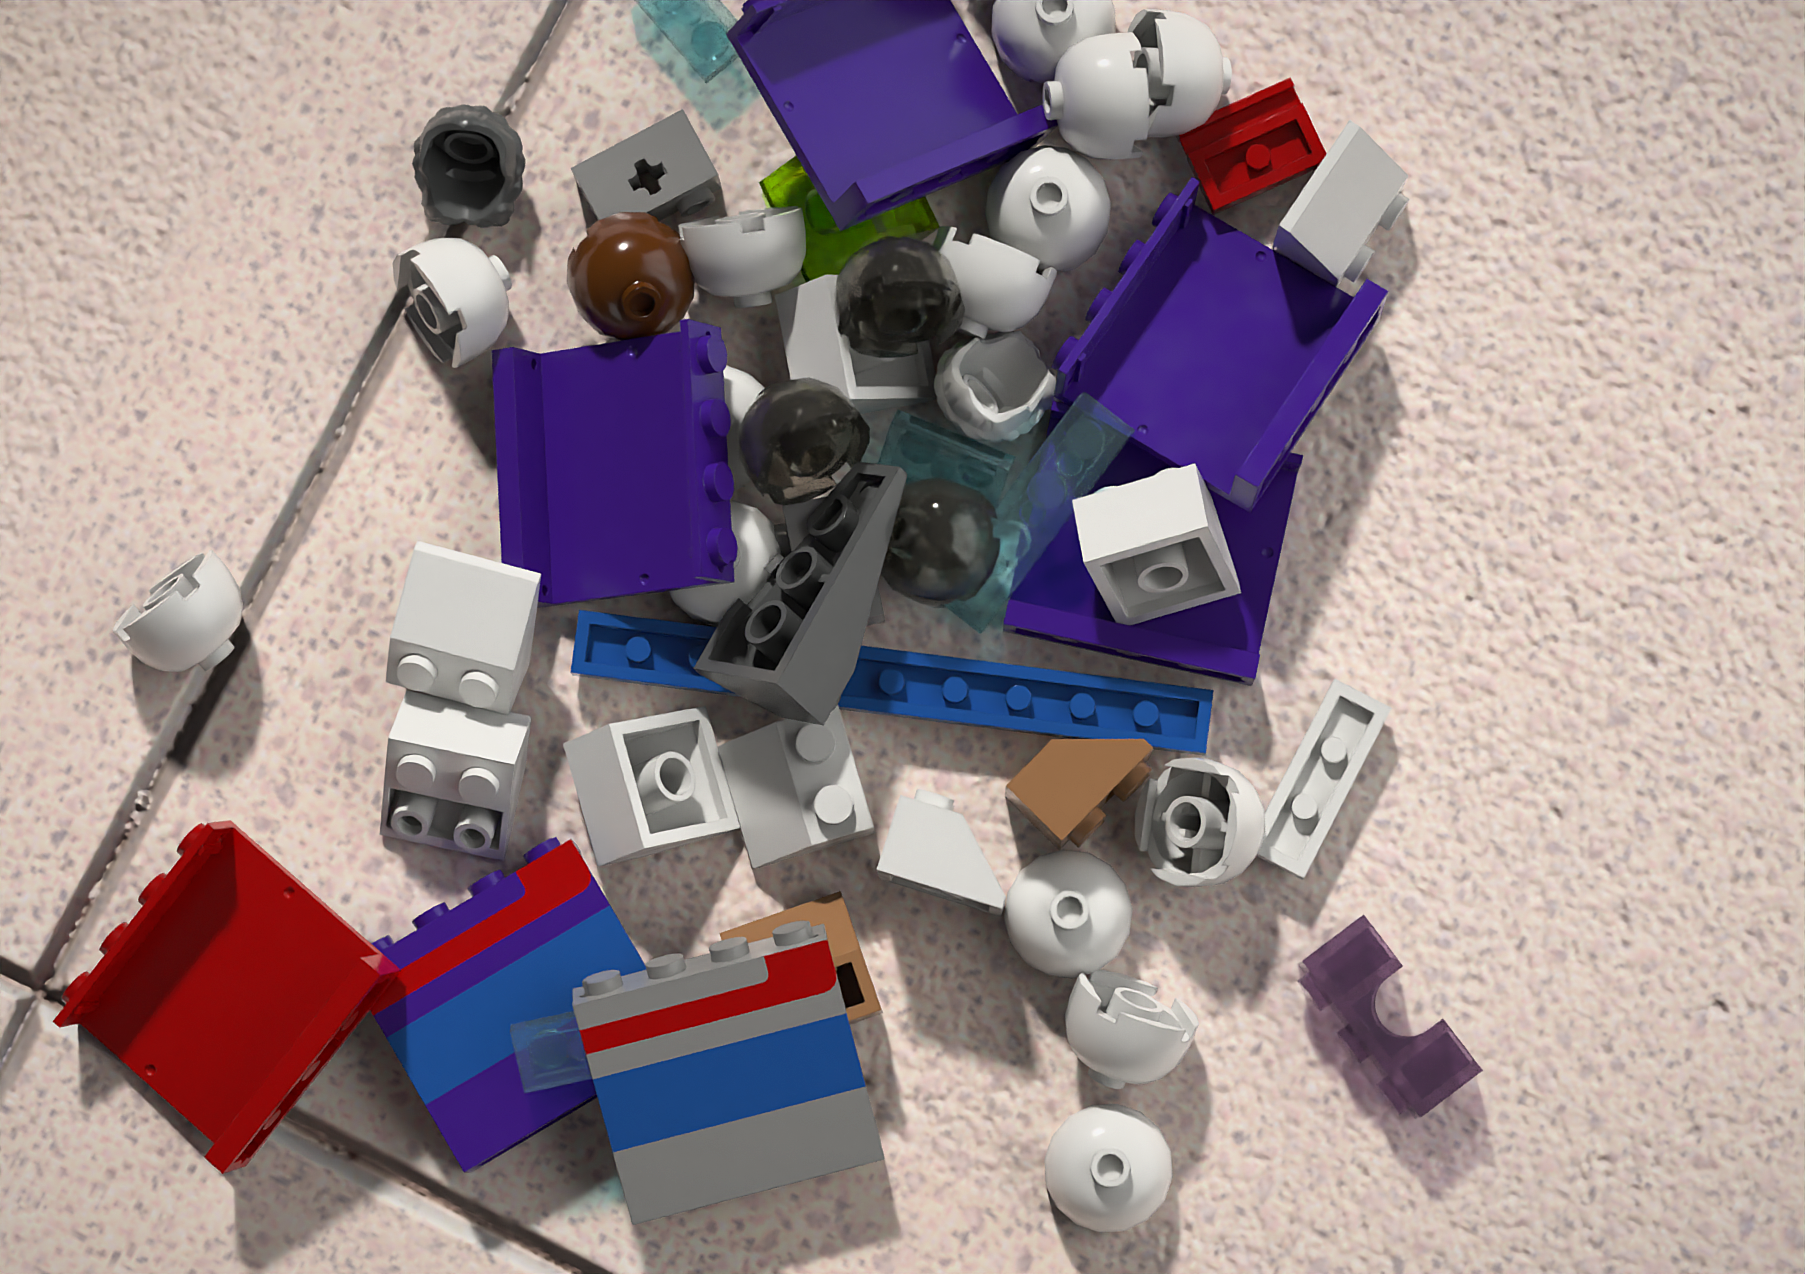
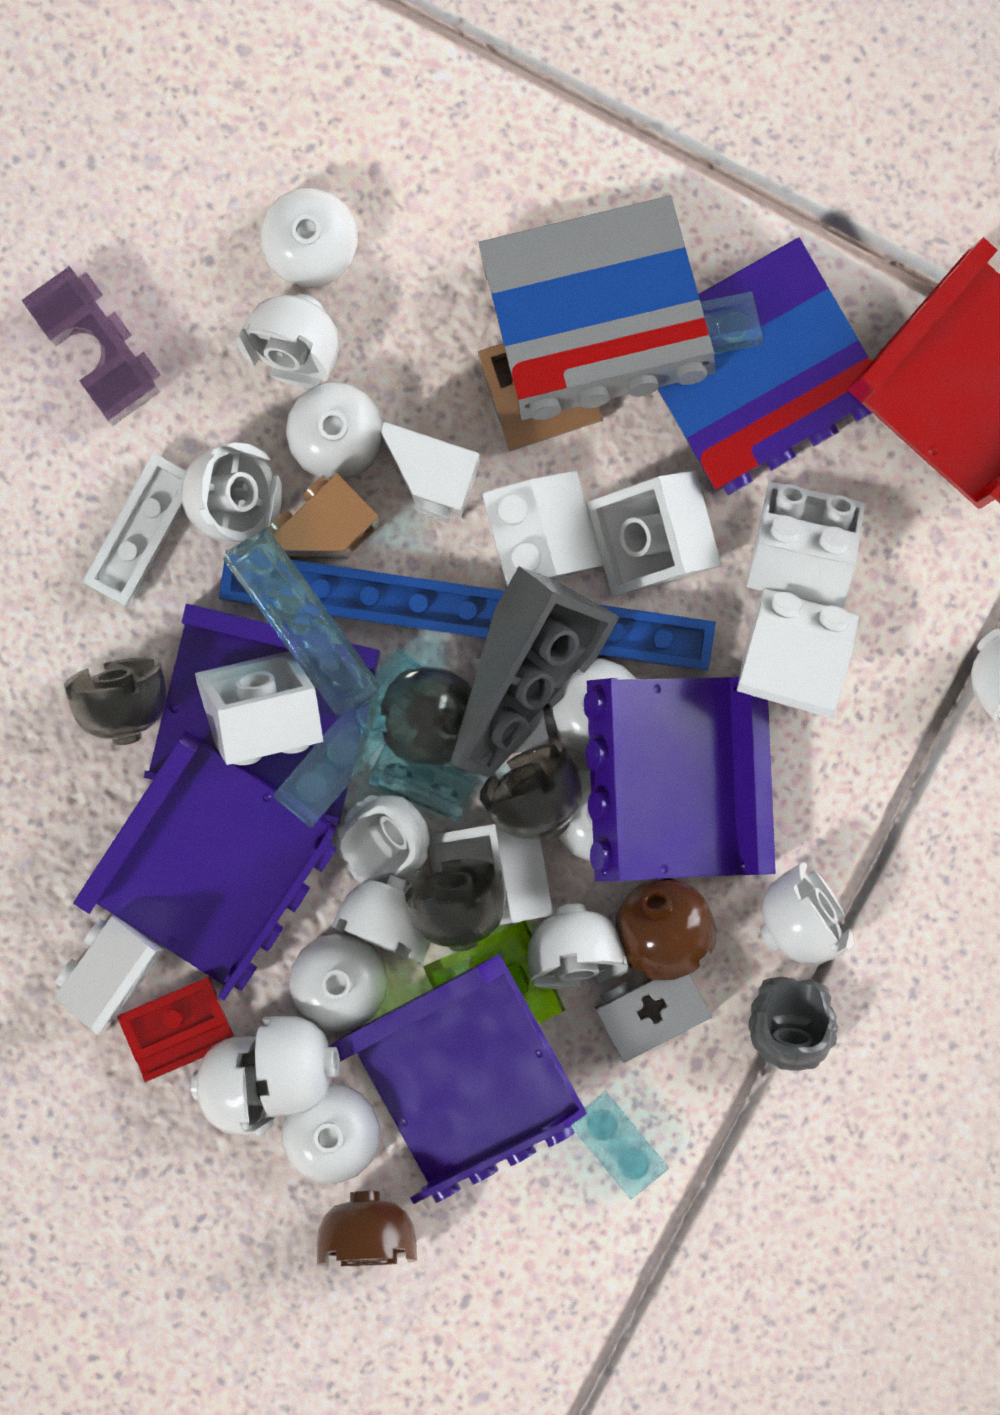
camera: 175 degrees right, 5 degrees up
(1103, 650) = (301, 621): none -> clear light blue plate
(1340, 556) = (119, 700): none -> clear smoke cylinder

